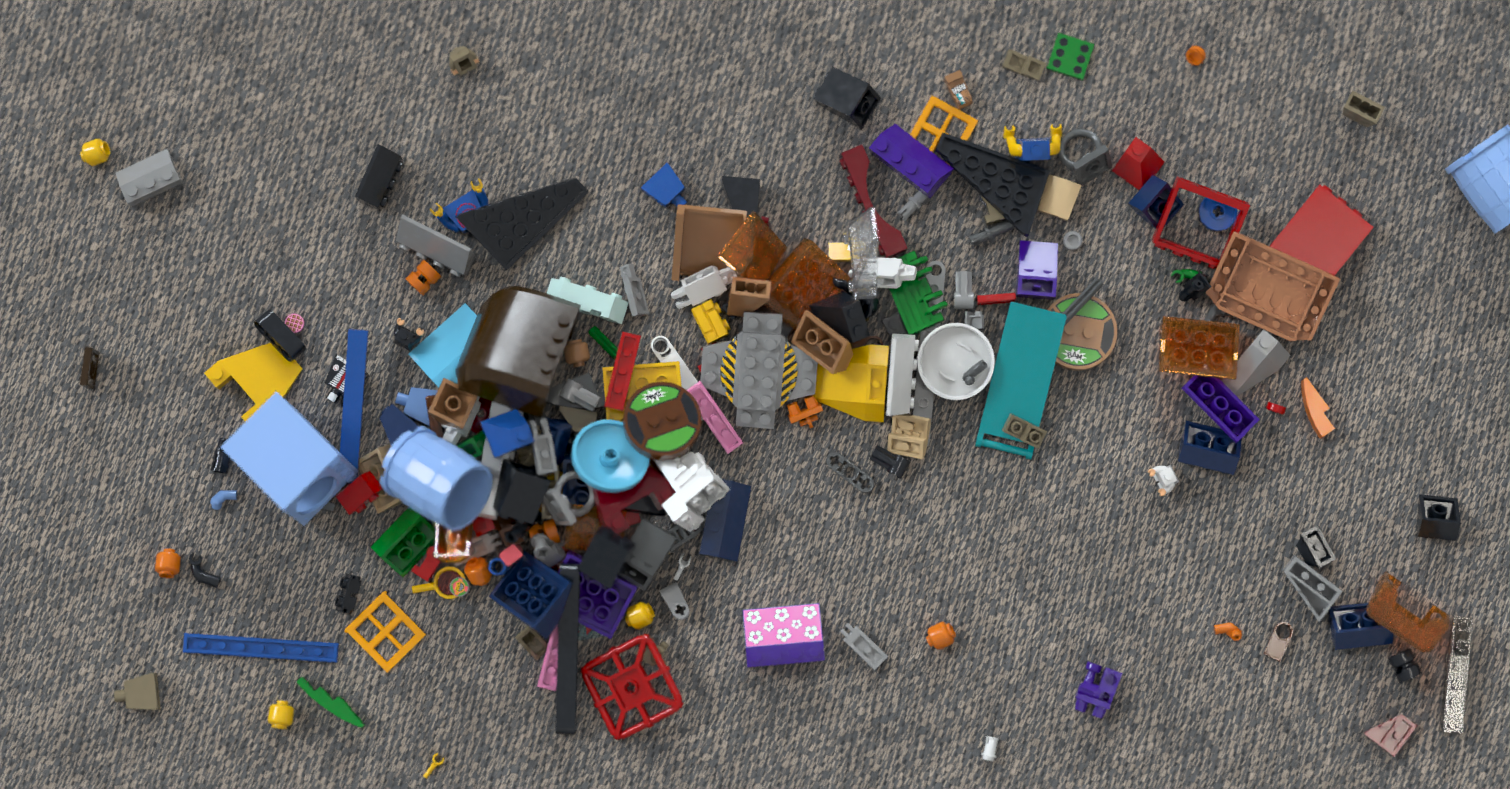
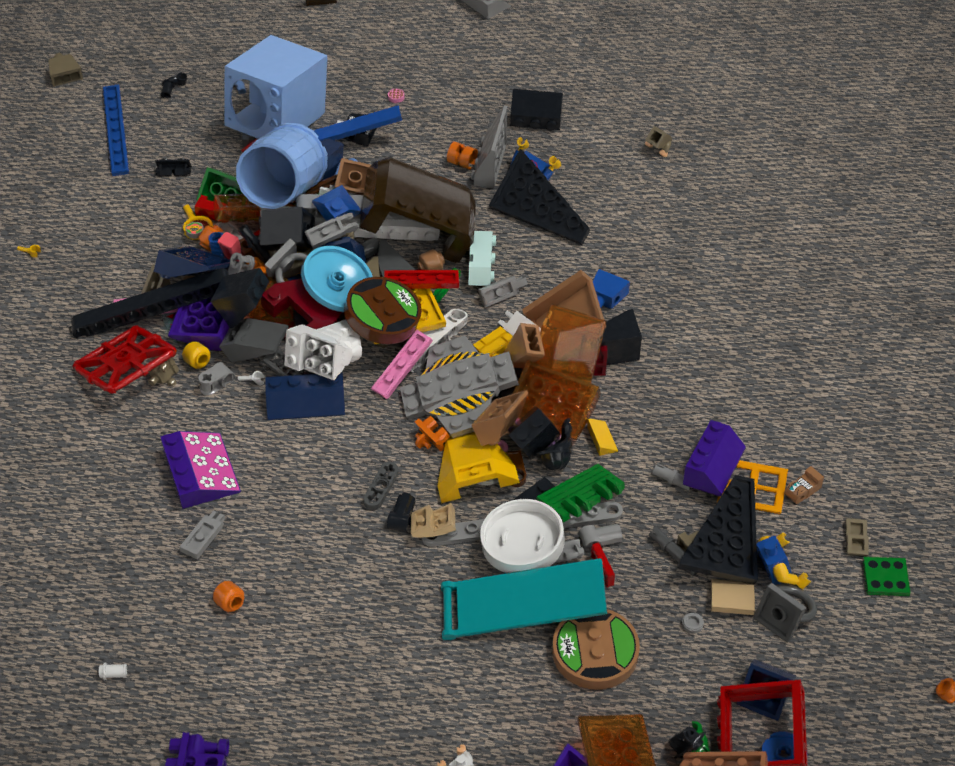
camera: 75 degrees right, 35 degrees down
(167, 563) = (174, 63): orange head -> none
(258, 372) = (347, 81): yellow wedge -> none
(279, 335) = (382, 85): black beam -> none
(280, 715) = (58, 147): yellow head -> none
(337, 706) = (72, 176): green slope -> none
(385, 631) = (144, 198): light orange window -> none
(404, 337) = (406, 152): black piece -> none
(577, 394) = (390, 259): light grey piece -> none
(847, 97) = (752, 401): black slope -> none
(857, 163) = (688, 423): dark red arch -> none
(862, 243) = (615, 417): clear wedge -> none
(892, 273) = (591, 457): white hinge -> none
(900, 374) = (489, 482): white slope -> none
(969, 375) = (515, 551): dark grey arm -> none
(1024, 430) = (470, 616): dark tan slope -> none
(1037, 270) = (645, 593): slope -> none
(1082, 299) = (623, 632): dark grey axle -> none
(1138, 164) = (804, 659): red slope -> none

